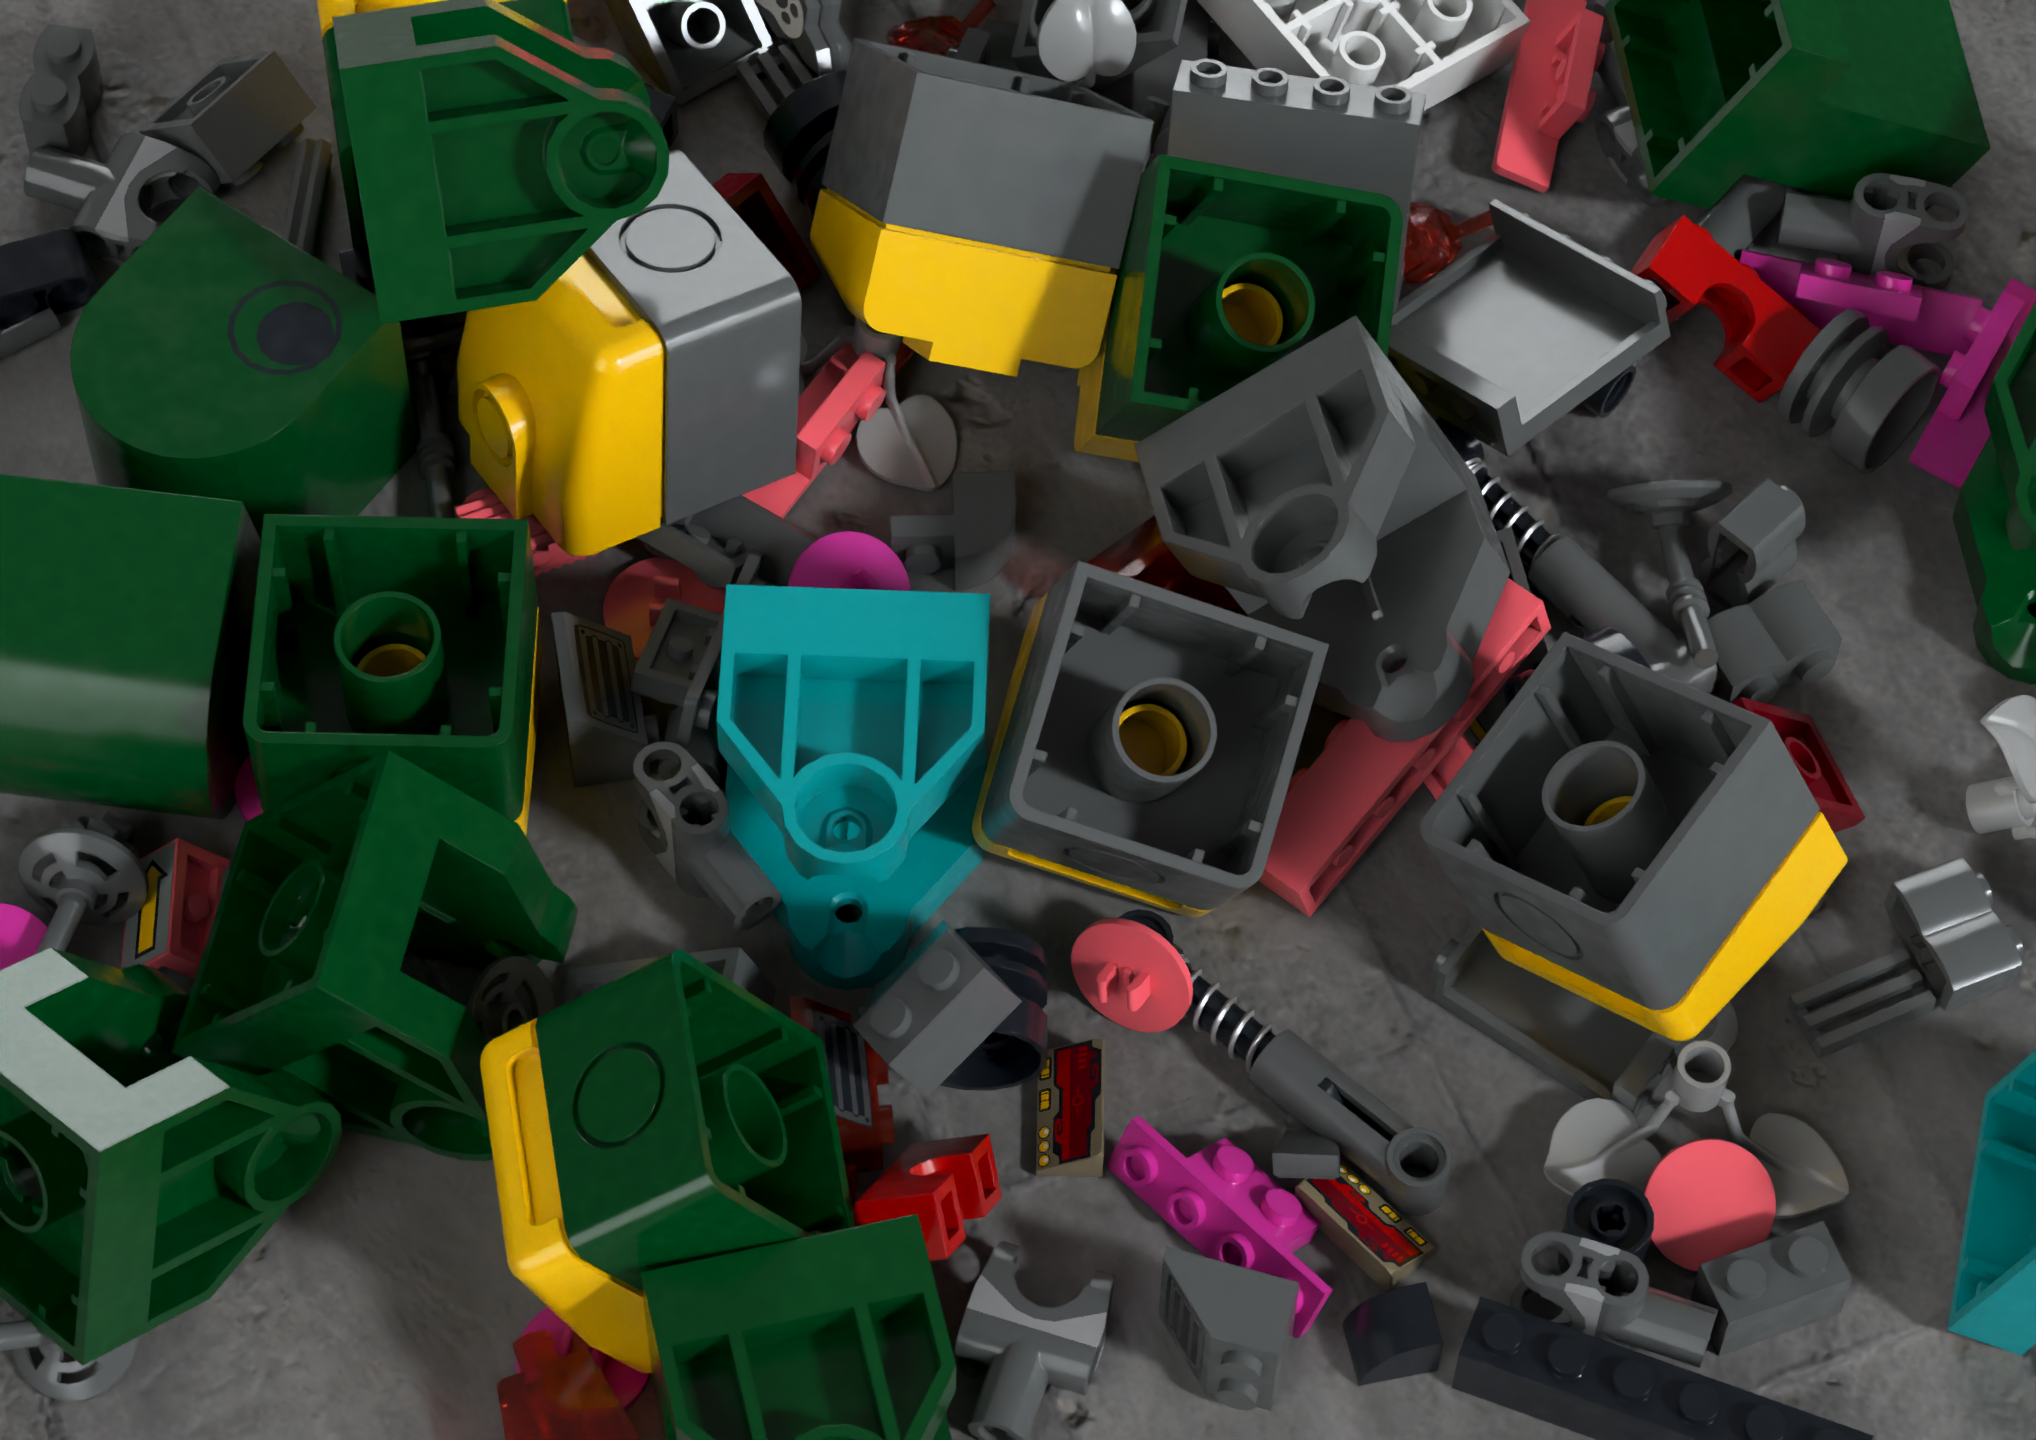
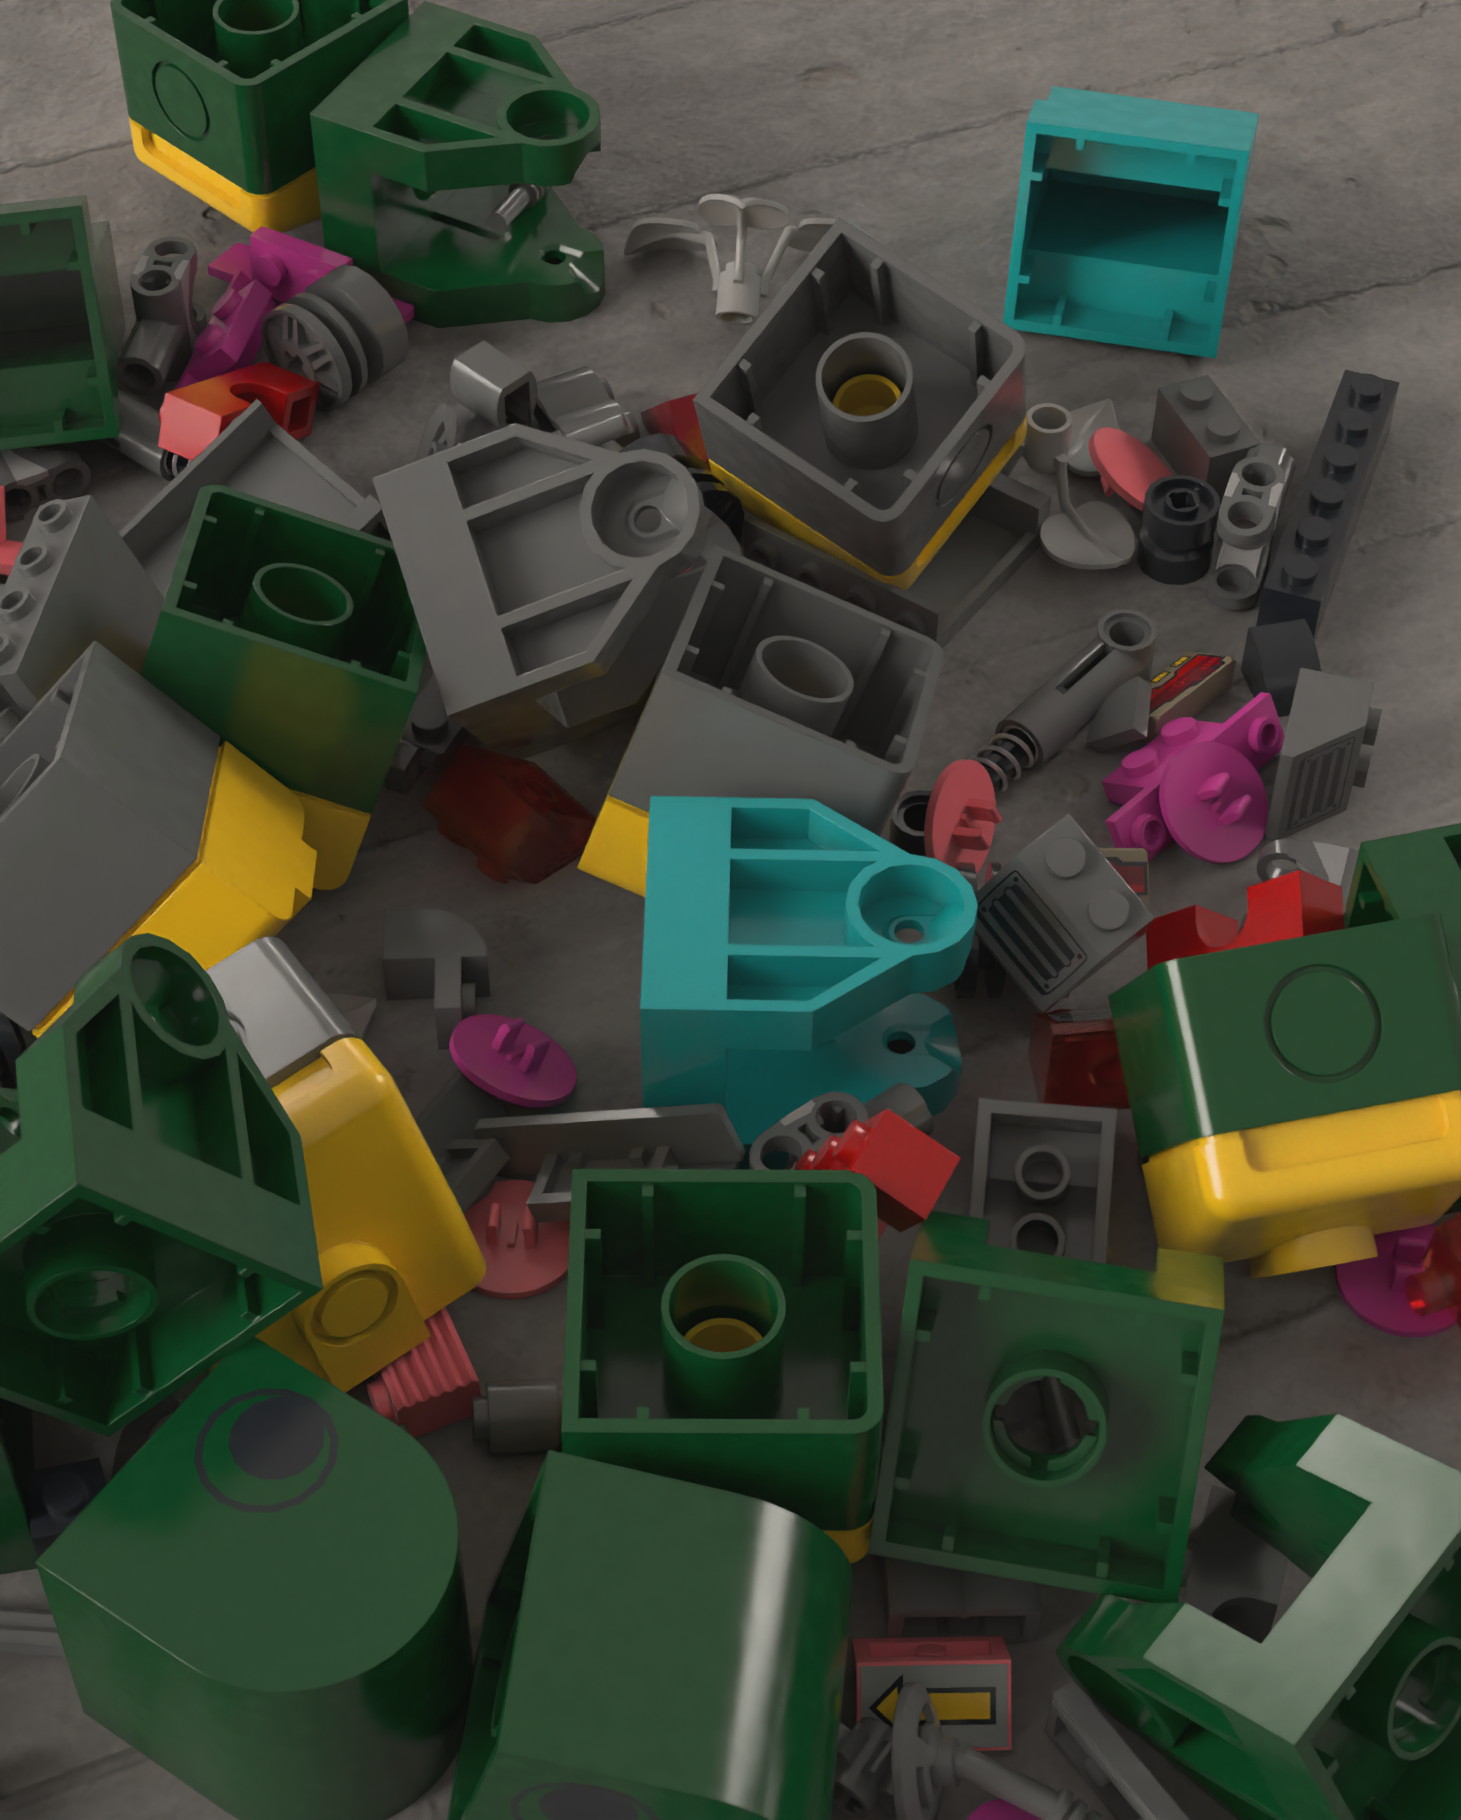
camera: 90 degrees left, 10 degrees down
(569, 791) = (898, 1160): none -> red arch
(1175, 1210) = (1213, 802): none -> dark pink piece

